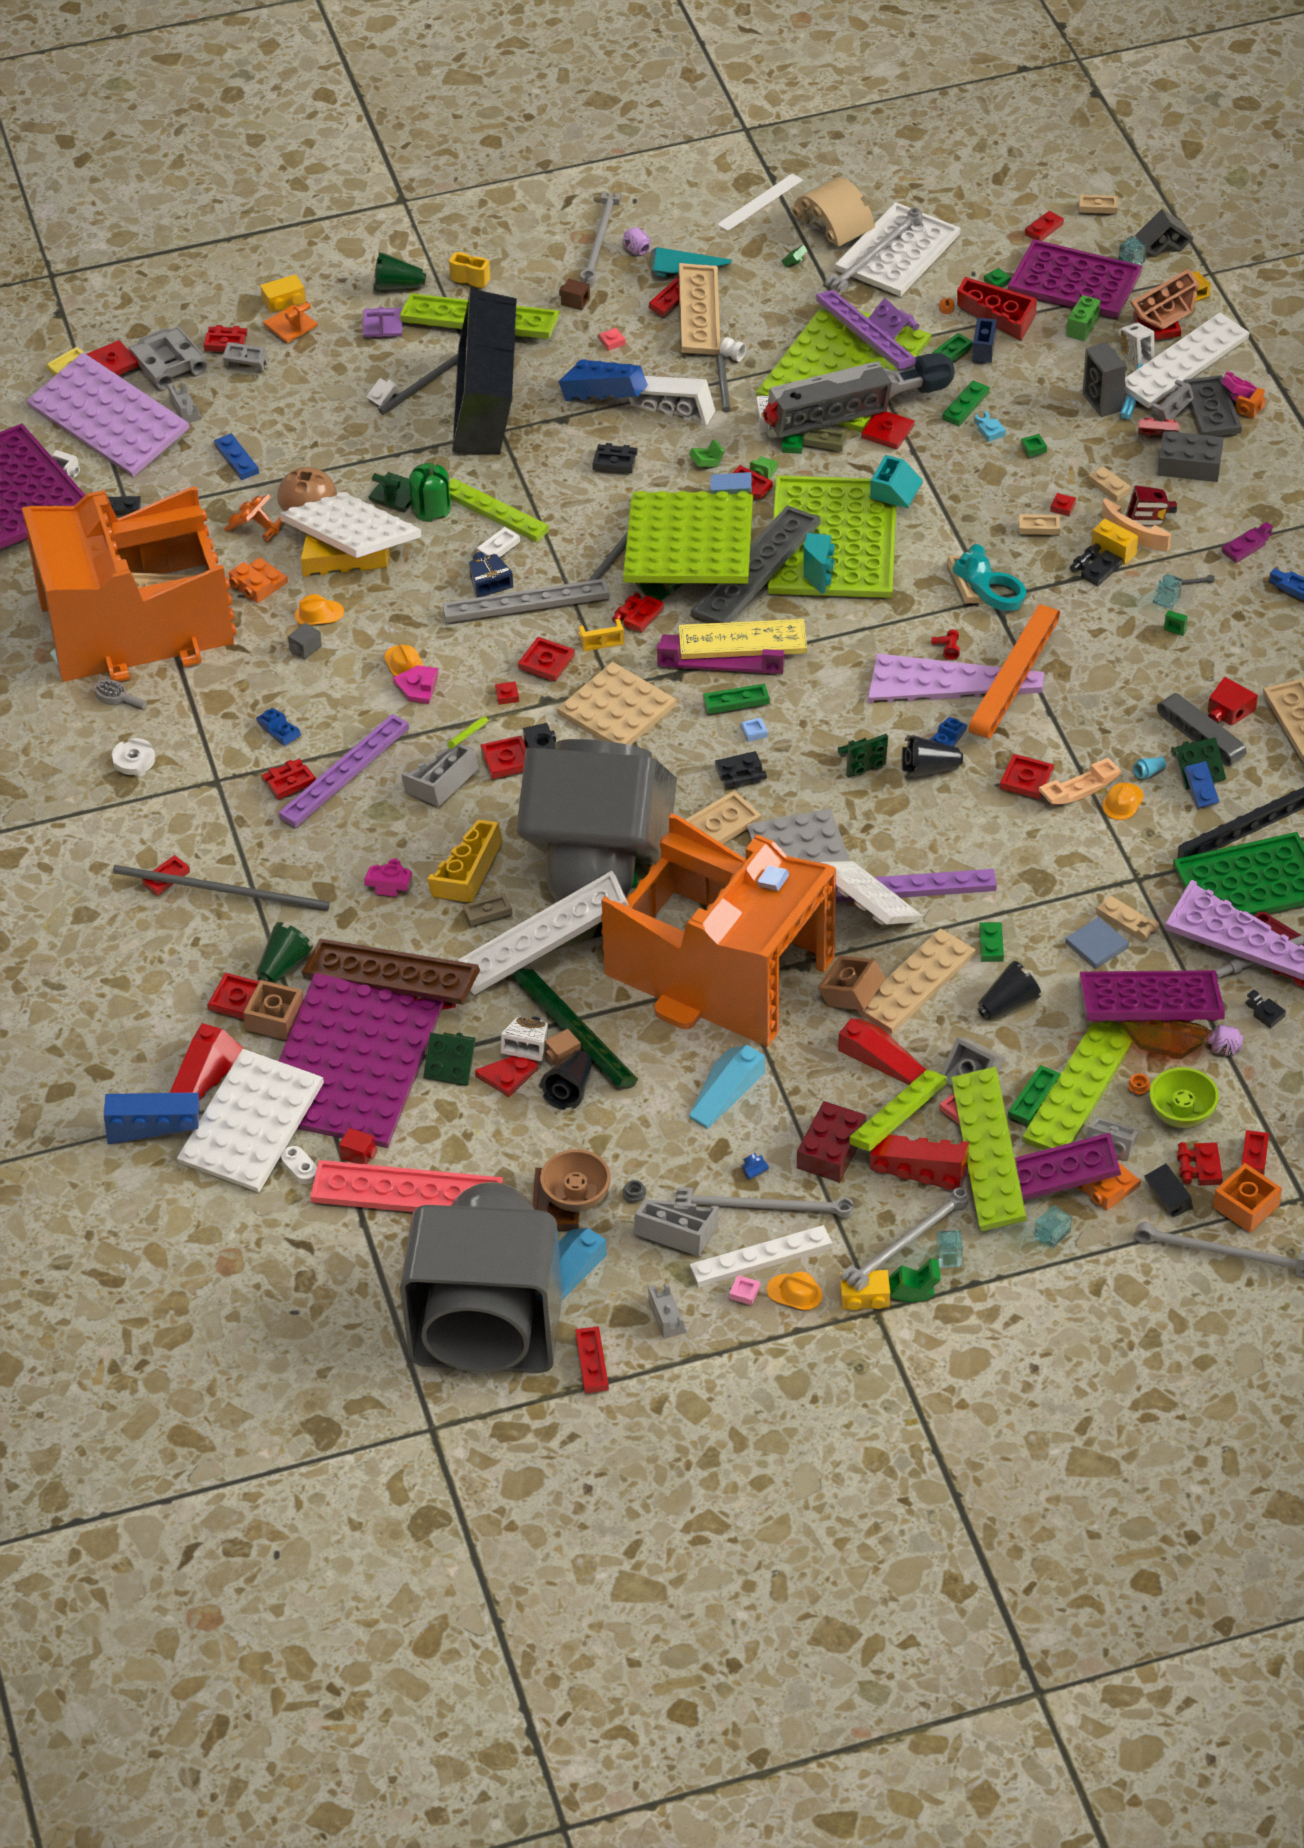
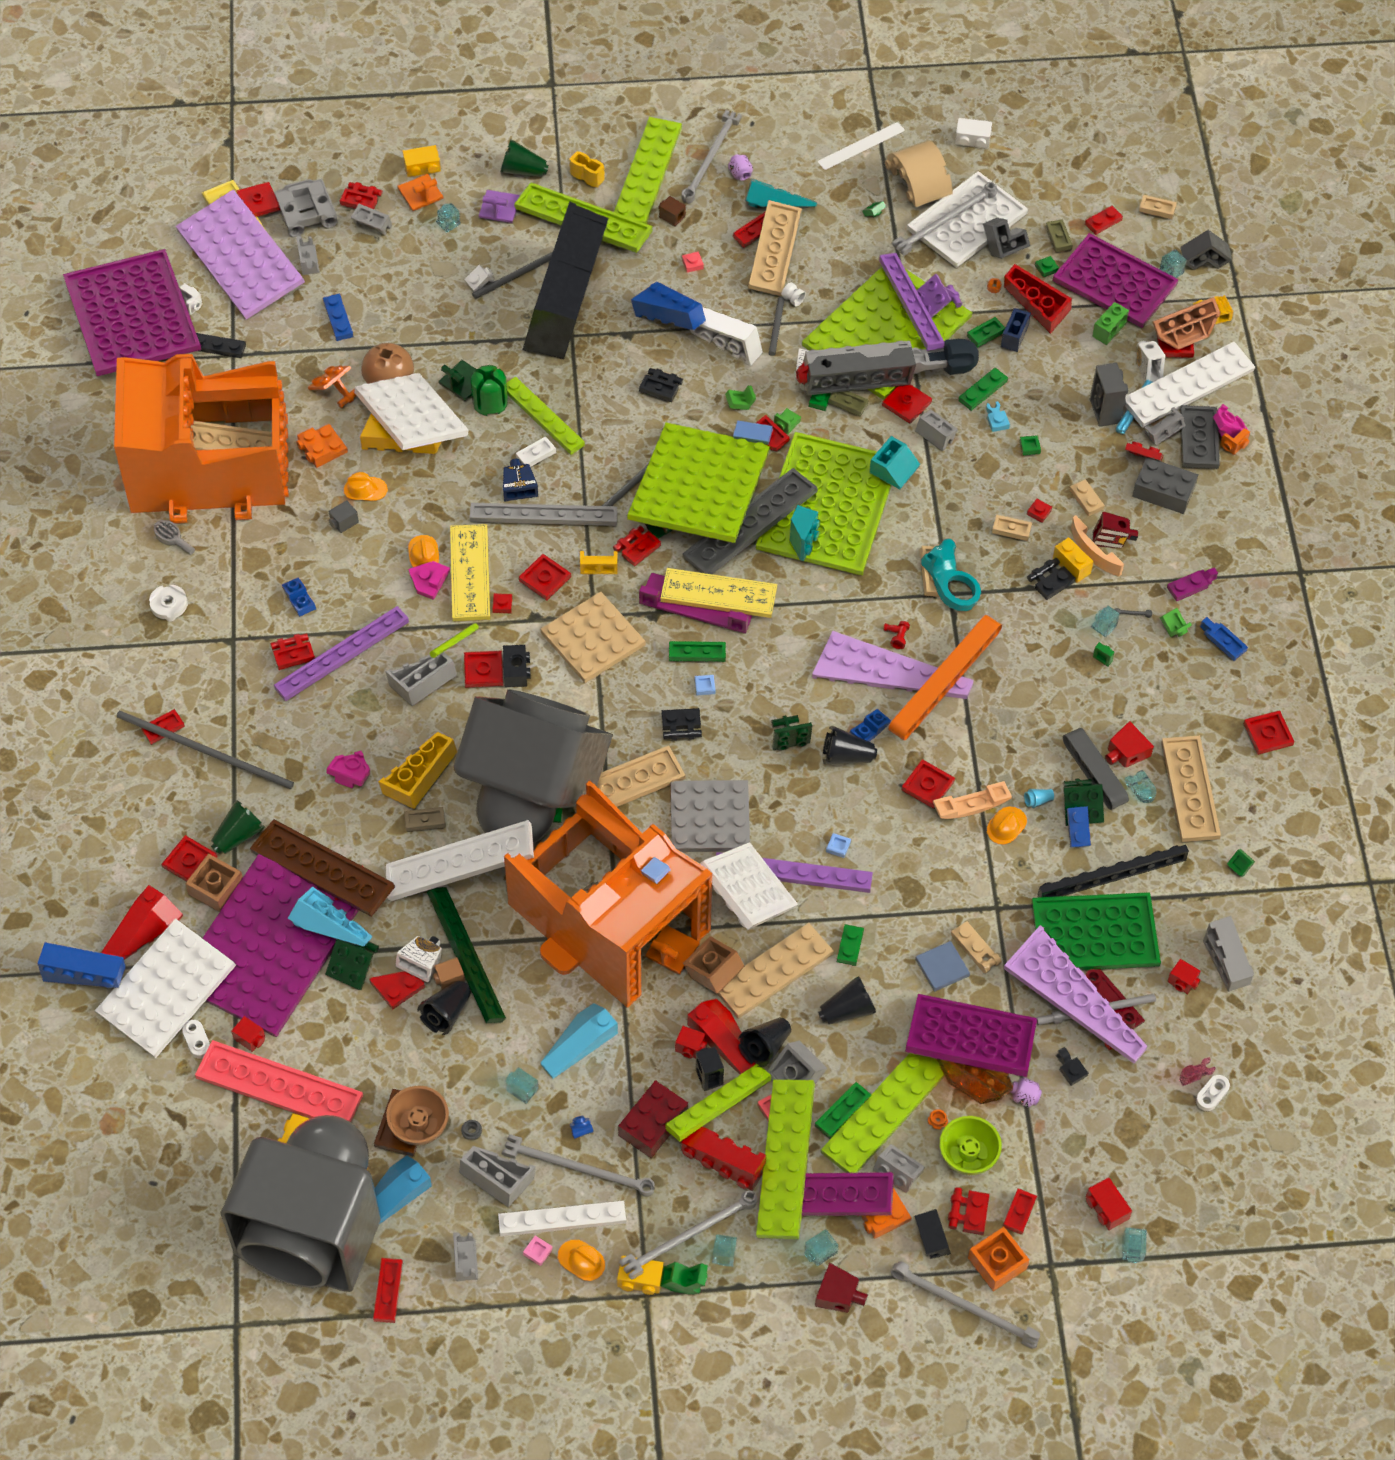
camera: 10 degrees right, 10 degrees up
(330, 340) = (447, 212): none -> clear light blue brick
(399, 1013) = (317, 914): none -> medium azure wedge
(461, 670) = (470, 572): none -> light yellow tile
(535, 258) = (648, 169): none -> lime plate
(676, 1138) = (521, 1085): none -> clear light blue brick
(800, 980) = (672, 949): none -> orange plate
(849, 1063) = (690, 1042): none -> red brick
(878, 168) = (973, 133): none -> white brick
(878, 1080) = (709, 1068): none -> black brick
(928, 448) = (936, 429): none -> light grey hinge
(928, 1044) = (763, 1041): none -> black cone
(943, 259) = (1003, 240): none -> dark grey brick
(948, 852) = (838, 845): none -> light blue tile
(1001, 247) = (1059, 235): none -> olive plate
(1085, 1262) = (839, 1290): none -> dark red torso
(1242, 581) = (1175, 623): none -> bright green bracket
(1256, 737) = (1144, 792): none -> clear light blue plate

